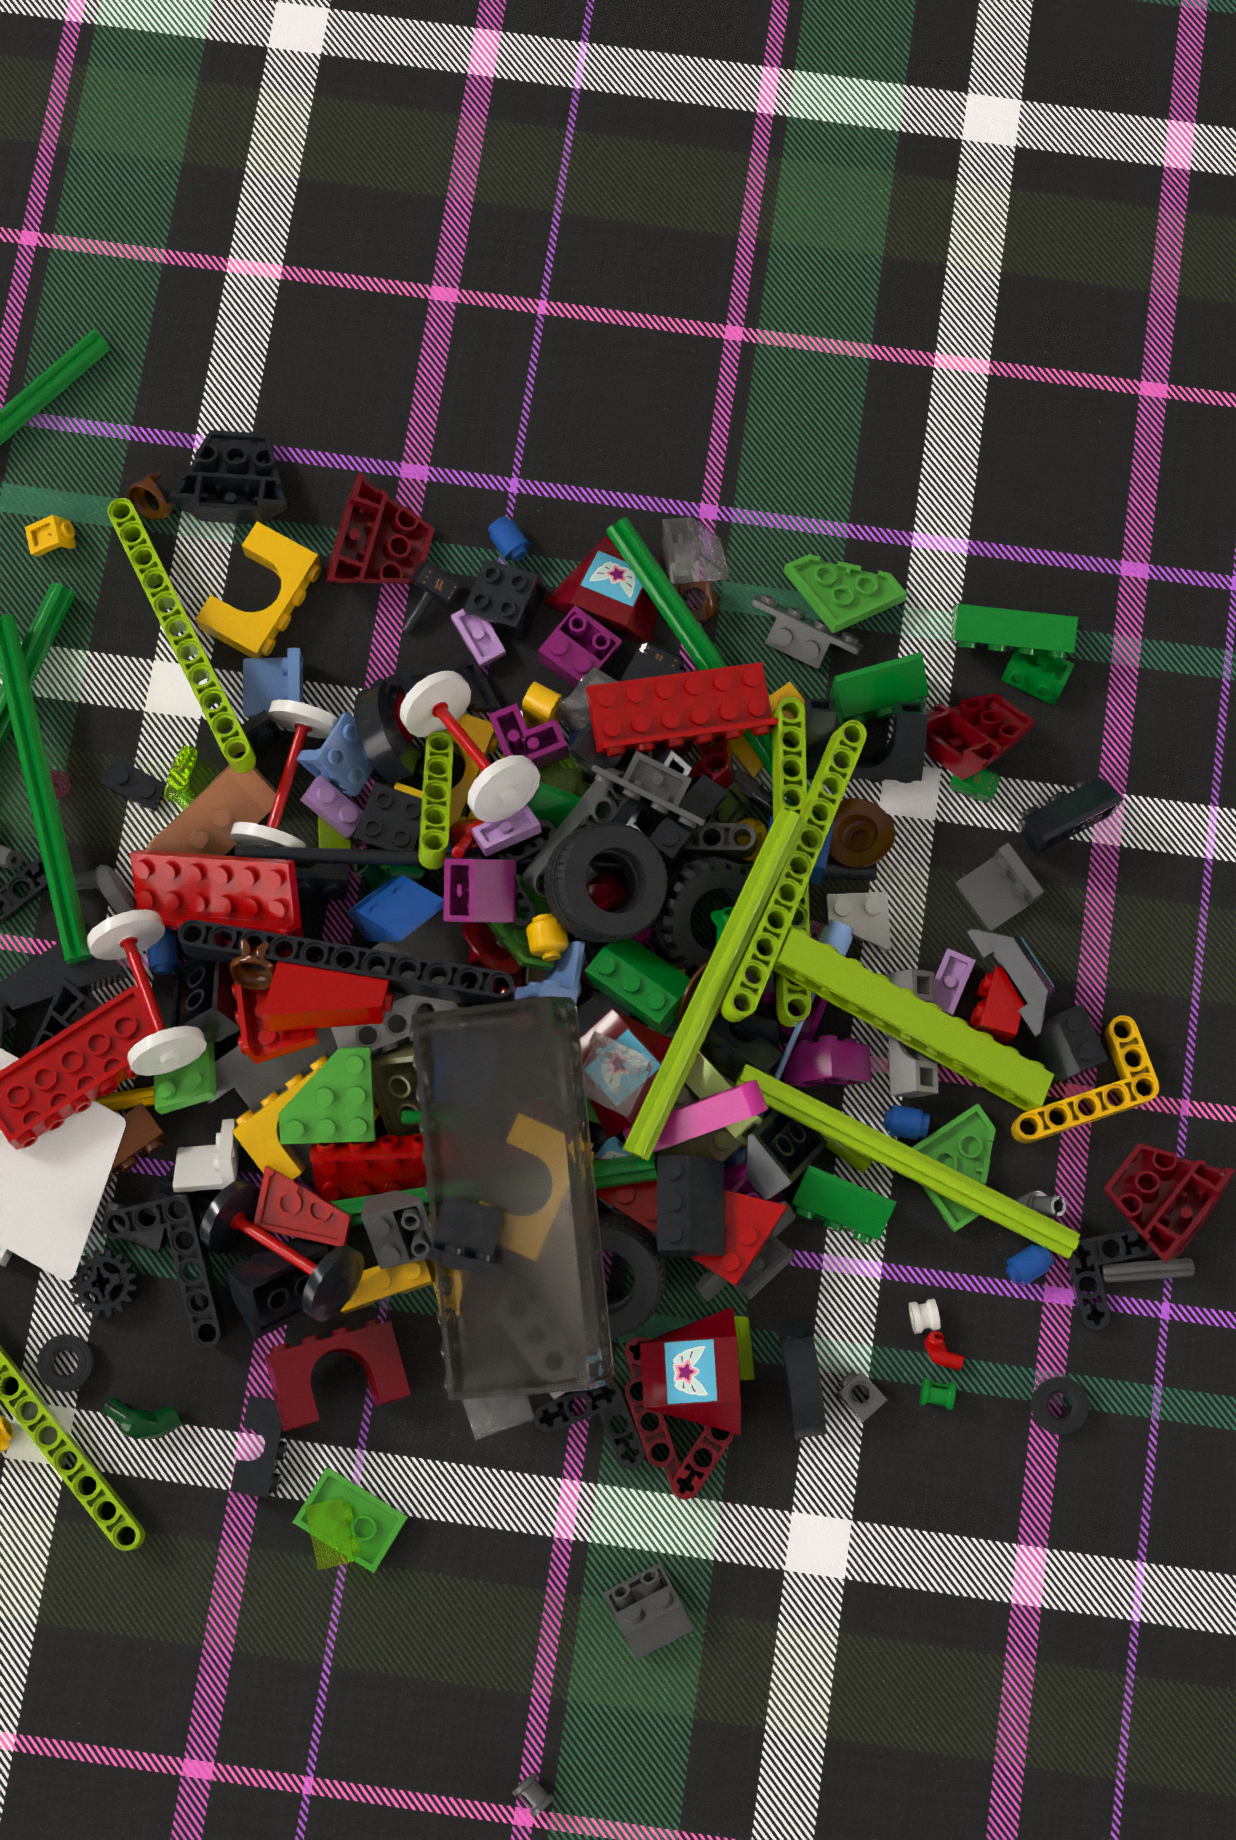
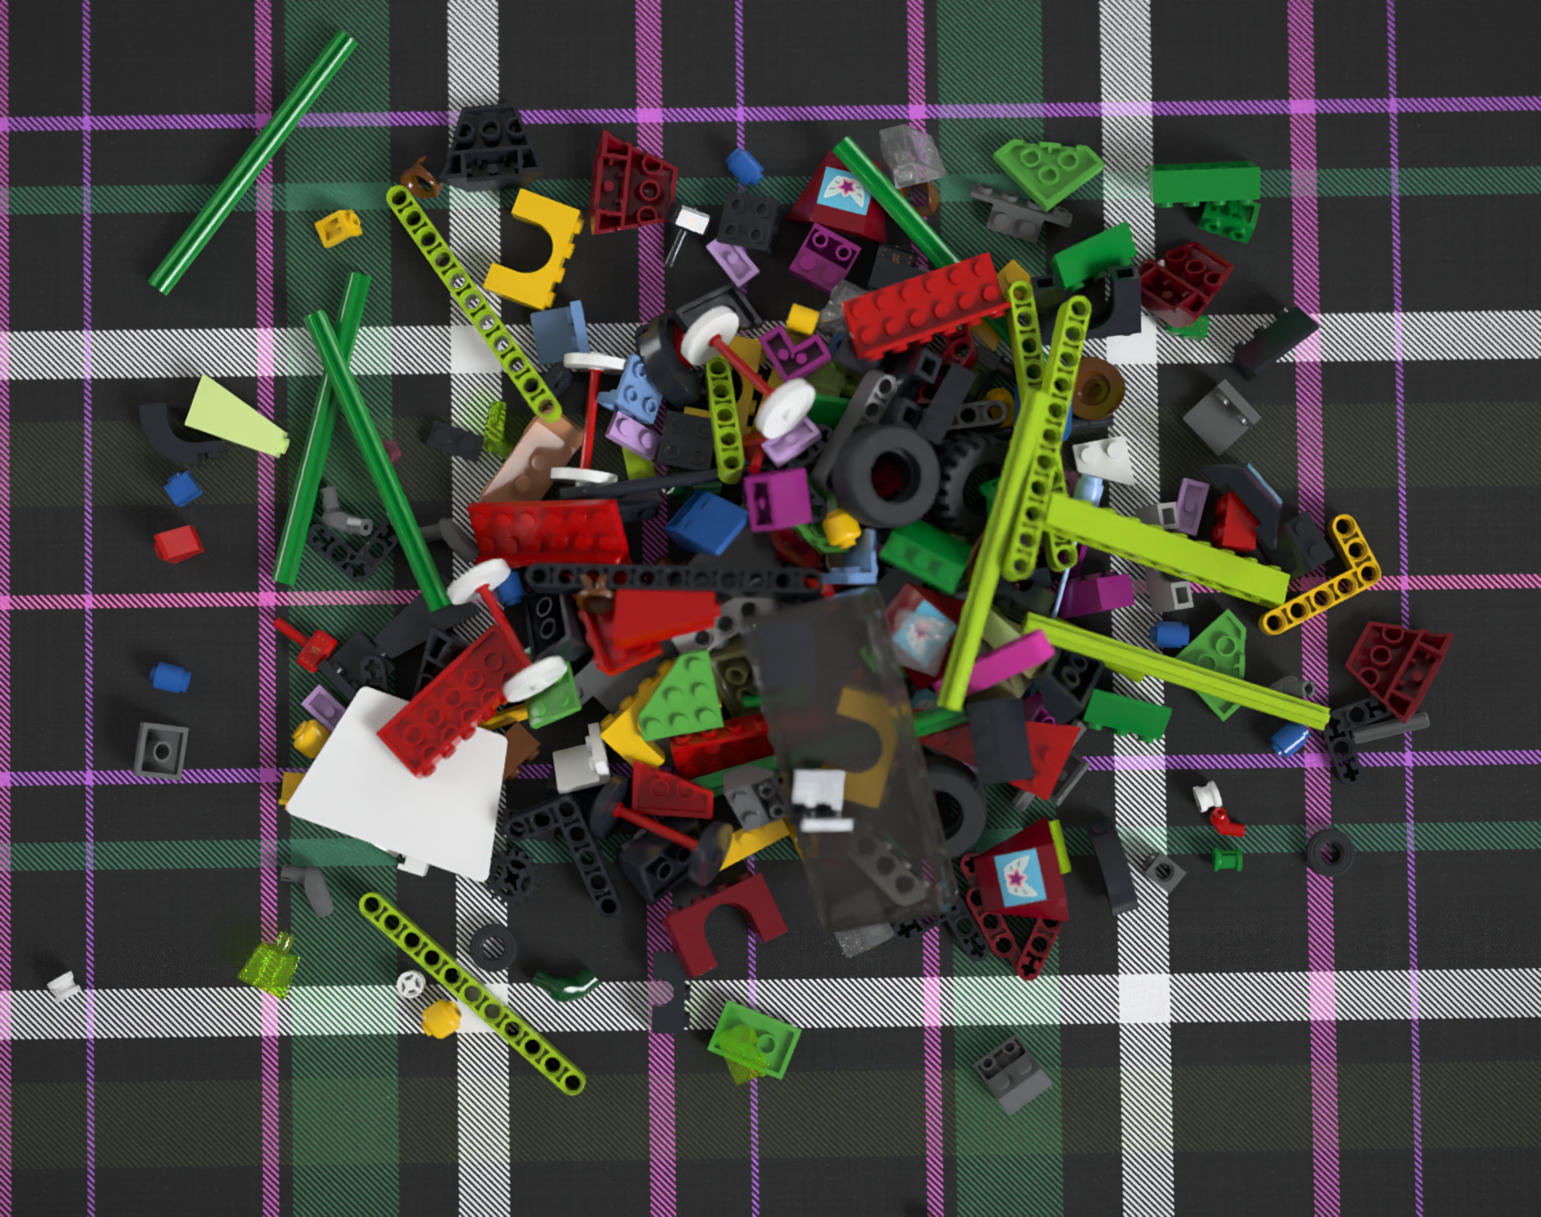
camera: 10 degrees left, 10 degrees up
(656, 782) = (914, 382): dark grey bracket -> none

